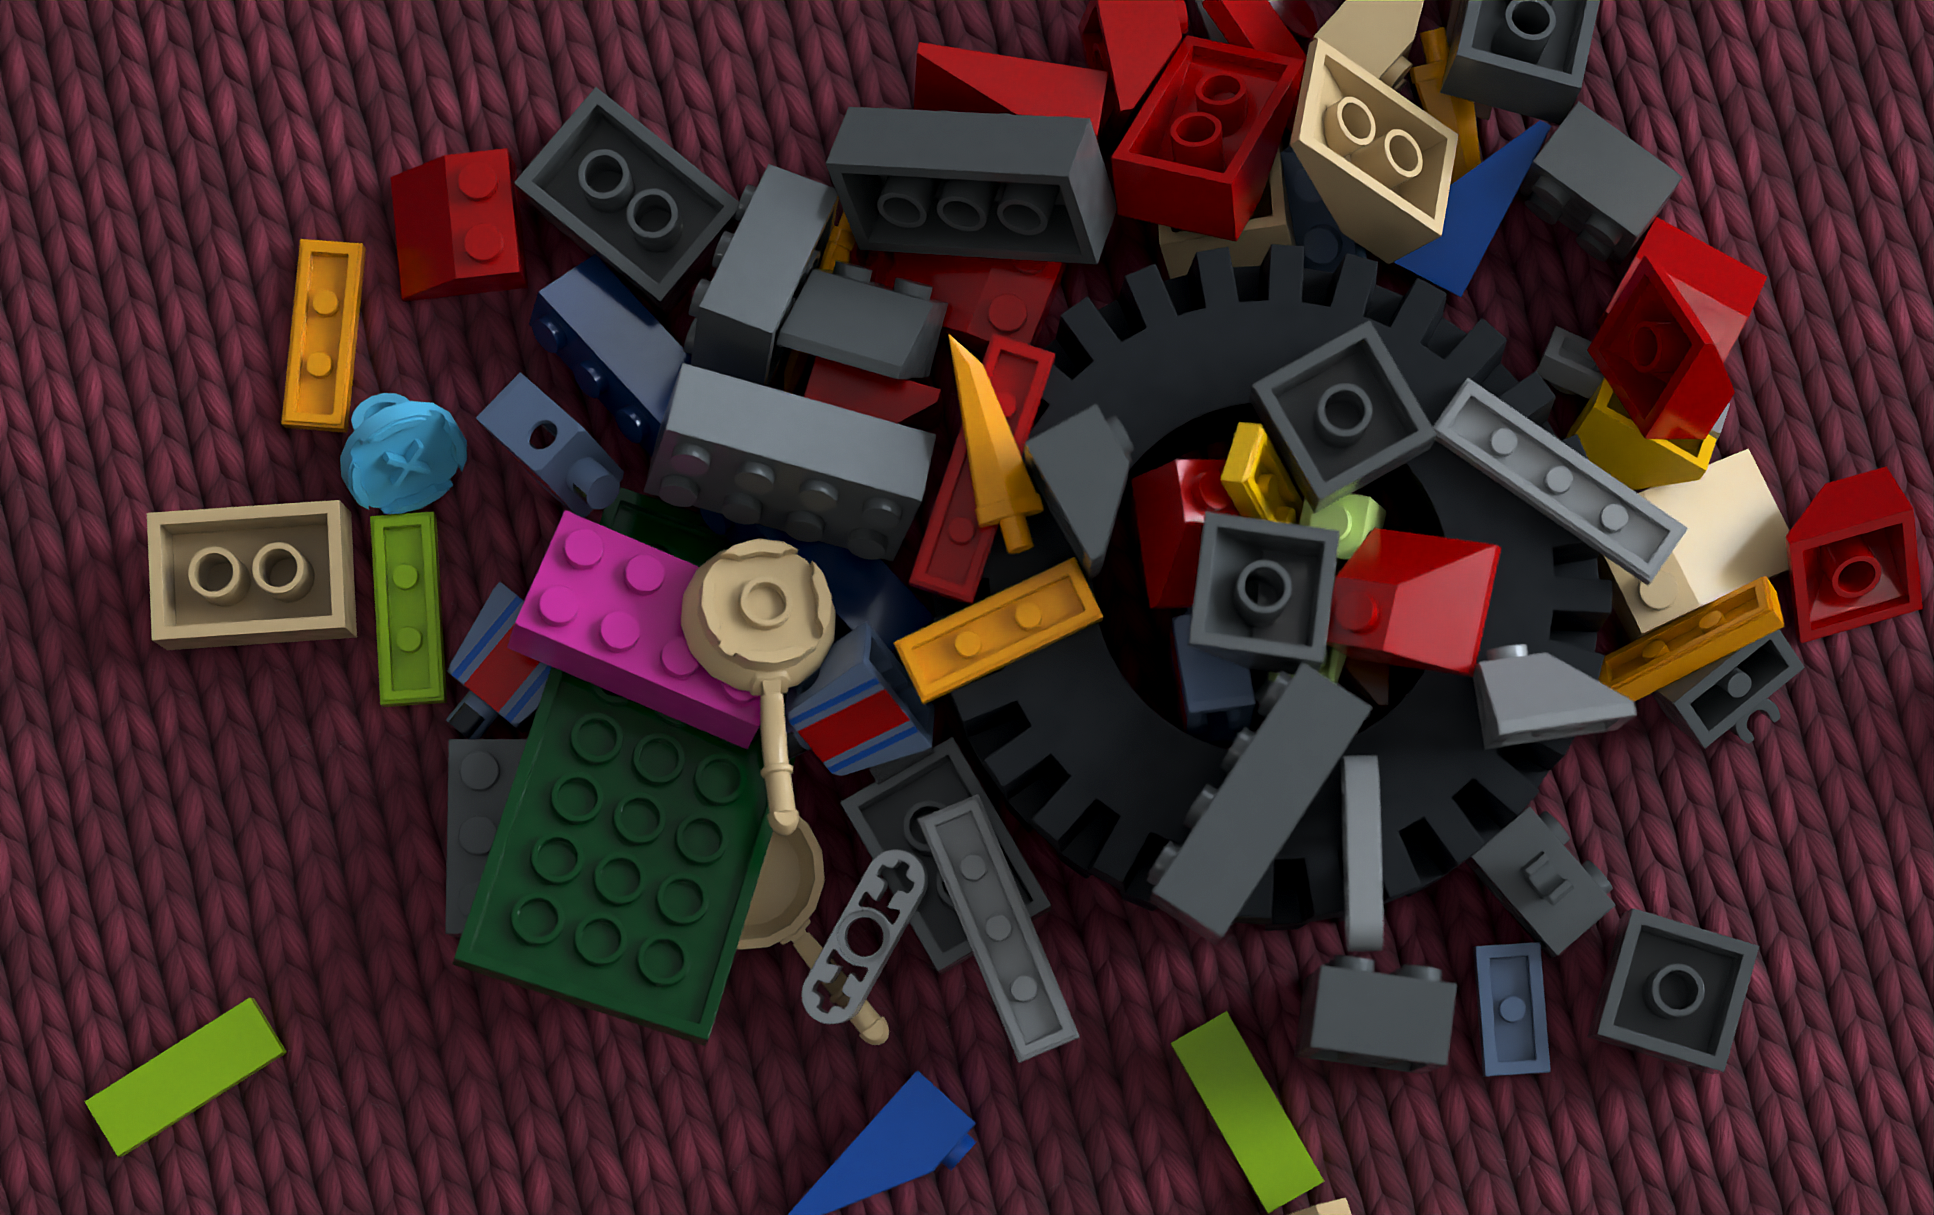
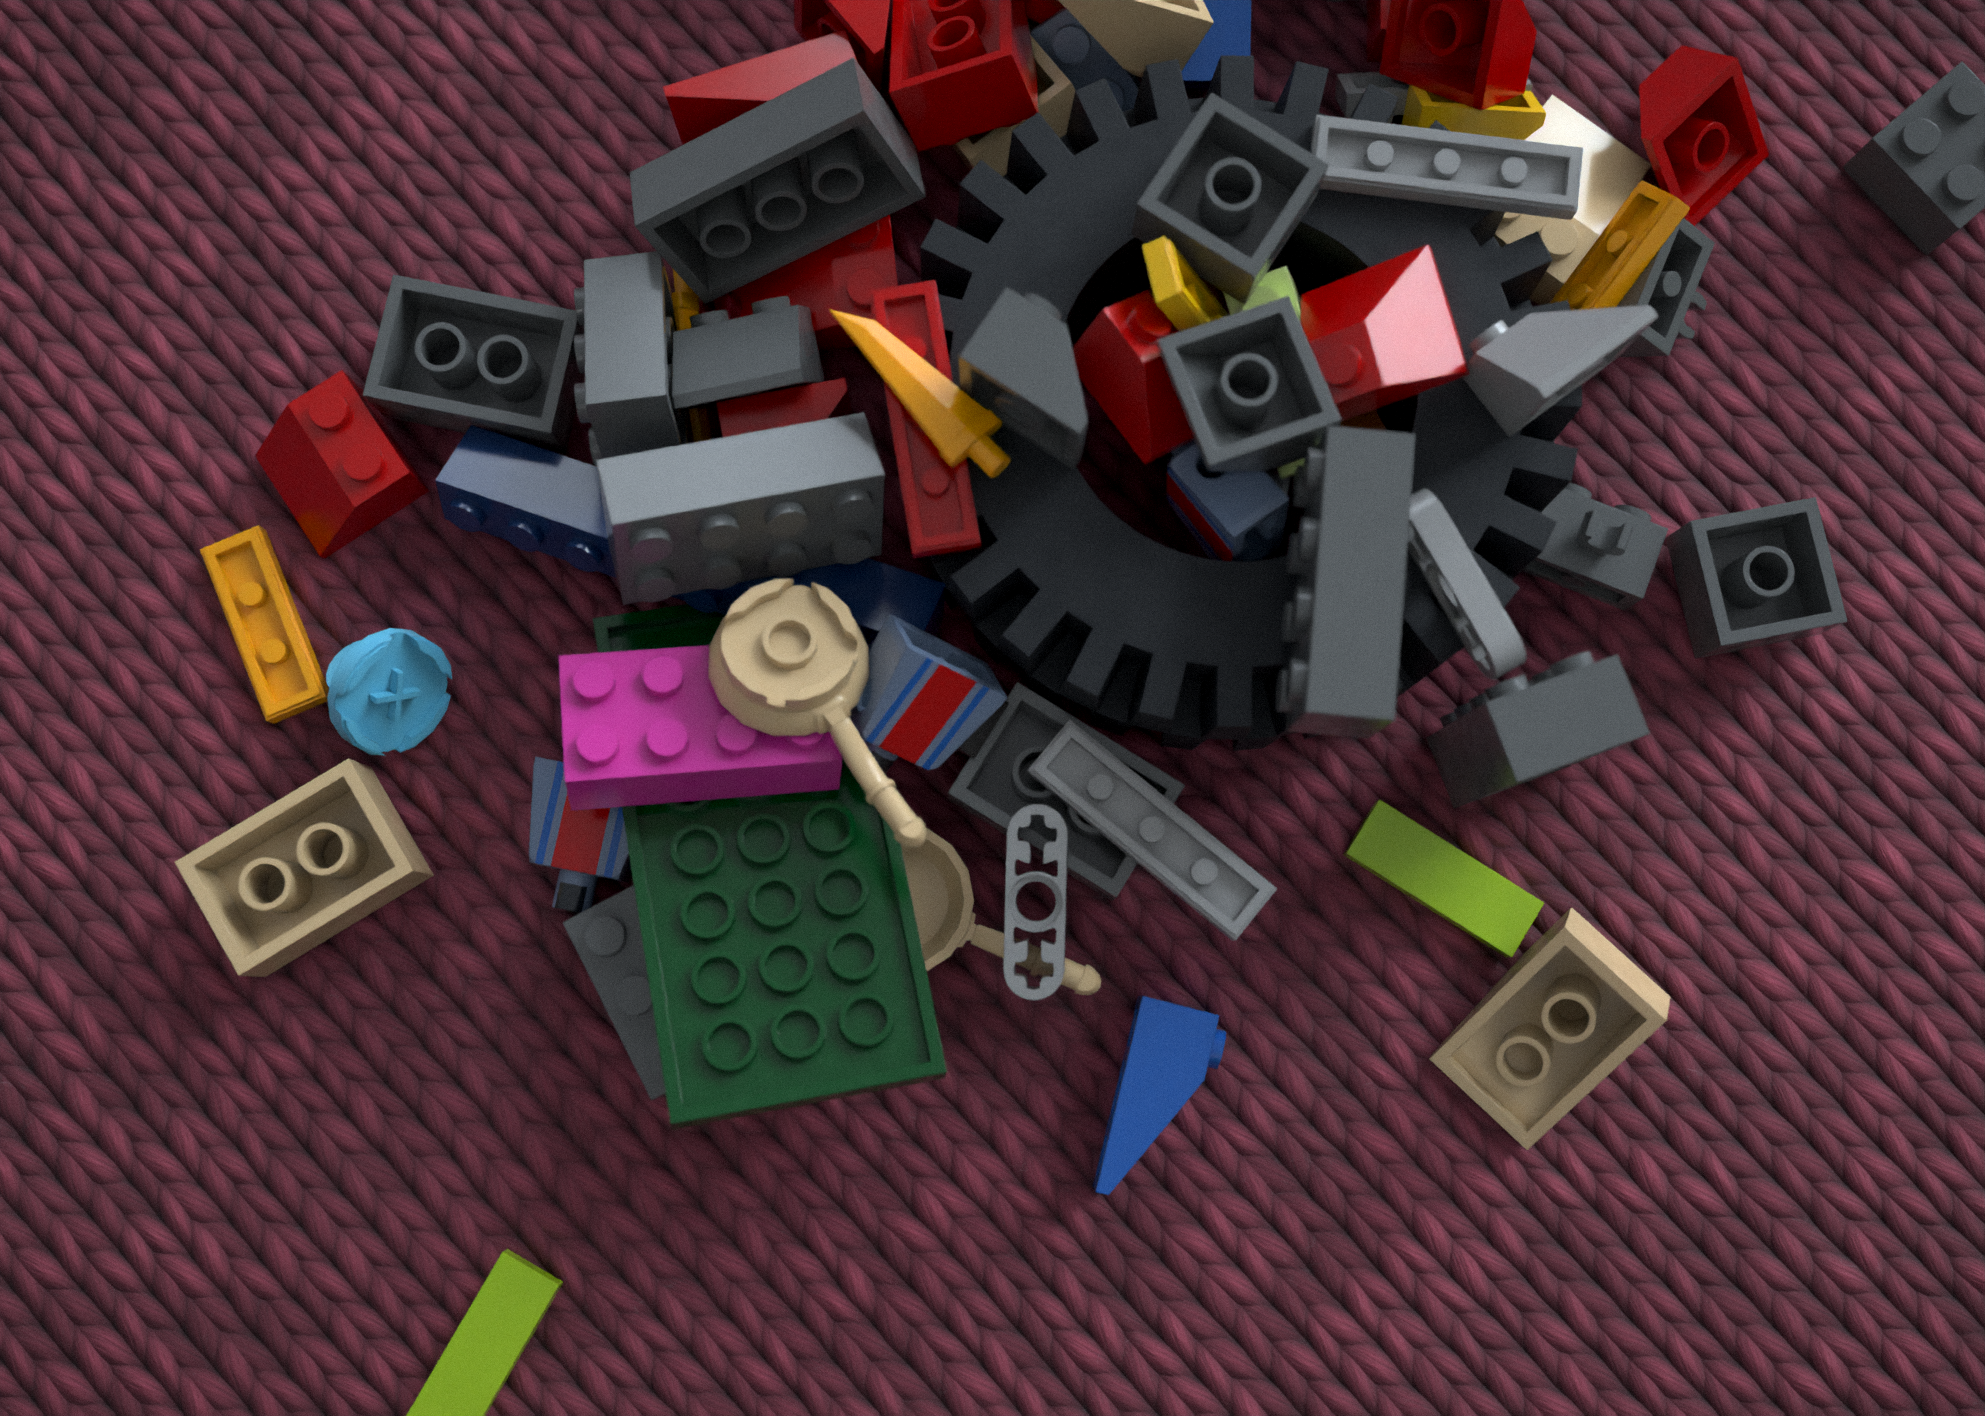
camera: 35 degrees left, 0 degrees up
(408, 609) = (467, 826): lime tile -> none
(570, 468) = (544, 622): sand blue torso -> none
(998, 630) = (1017, 556): light orange tile -> none
(1511, 1009) = (1612, 632): sand blue plate -> none

